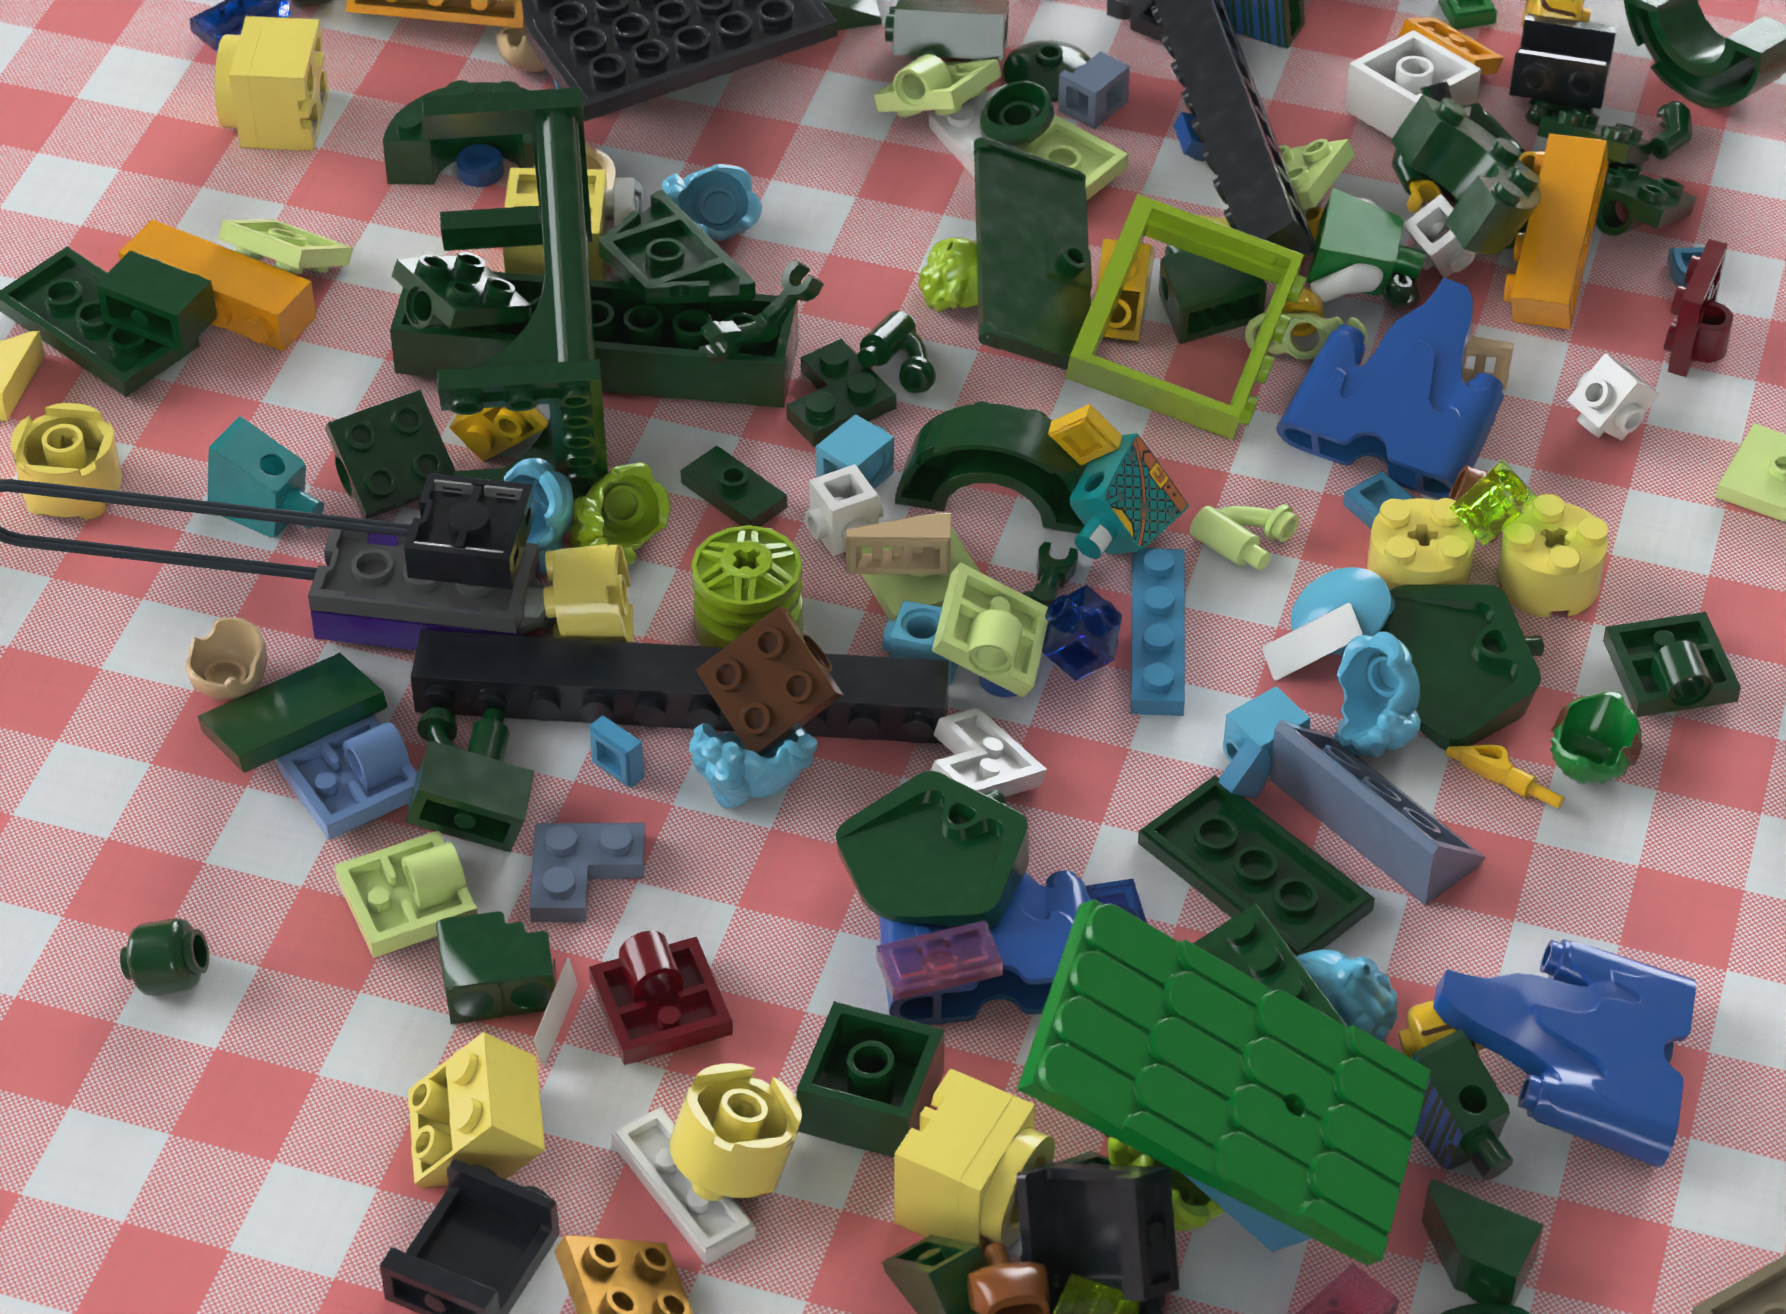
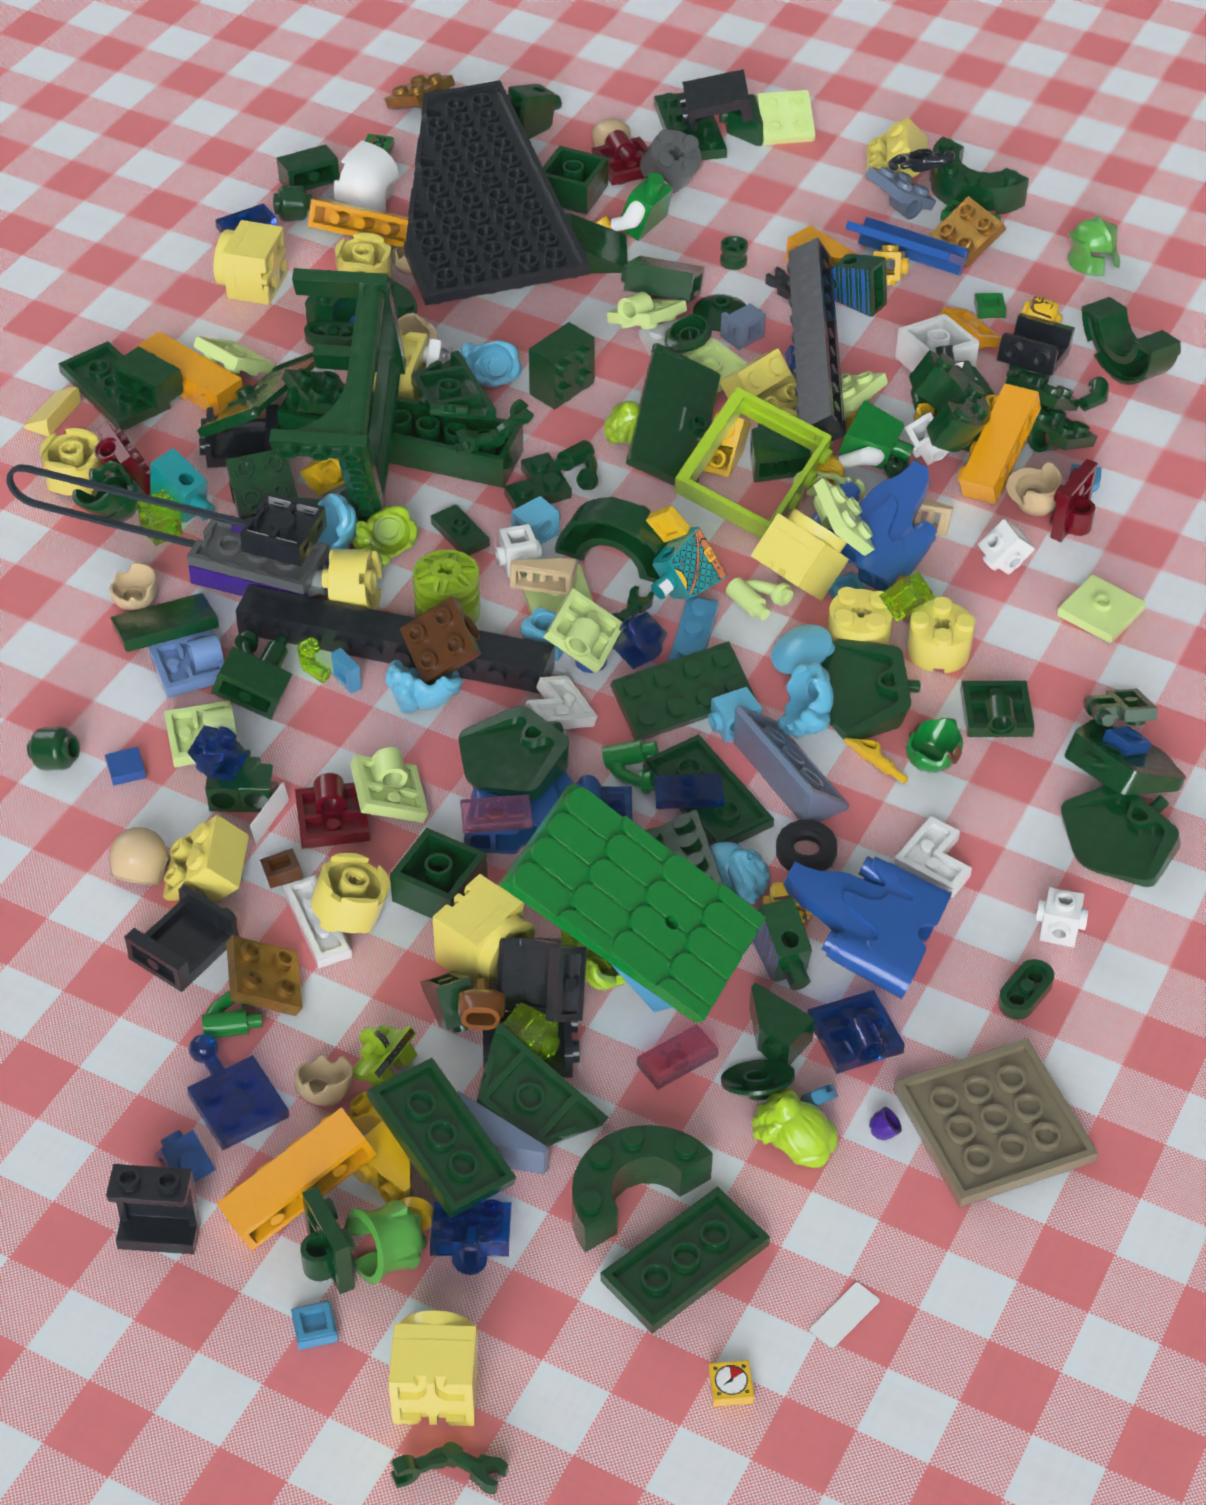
camera: 10 degrees right, 0 degrees up
(143, 525) = (108, 504): none -> dark green helmet
(147, 444) = (115, 448): none -> dark red plate
(236, 536) = (159, 517): none -> clear neon green brick
(291, 968) = (125, 766): none -> blue tile
(330, 381) = (239, 440): none -> black panel
(356, 305) = (254, 399): none -> dark green door
(361, 1122) = (138, 856): none -> tan helmet
(435, 187) = (329, 333): none -> dark green plate
(453, 50) = (364, 254): none -> light yellow brick
(457, 927) = (217, 753): none -> clear blue brick
(547, 744) = (309, 664): none -> clear neon green arm
(574, 853) = (308, 725): sand blue plate -> none
(603, 1104) = (281, 868): none -> reddish brown plate
(744, 938) = (389, 786): none -> yellowish green plate
(829, 192) = (561, 365): none -> dark green brick
(1117, 823) = (630, 753): none -> green plant
(1157, 167) = (765, 378): none -> light yellow slope
(1165, 708) = (677, 690): none -> dark green plate
(1229, 873) = (688, 791): none -> clear blue plate
(1247, 771) = (716, 734): dark azure tile -> none
(1305, 452) = (802, 553): none -> light yellow piece
(1312, 641) = (778, 664): white sticker -> none
(1353, 377) = (842, 515): none -> yellowish green plate
(1443, 911) = (807, 831): none -> black tyre
(1607, 1234) = (856, 1031): none -> clear blue plate
(1632, 298) = (1035, 489): none -> tan helmet
(1632, 926) = (928, 858): none -> white plate

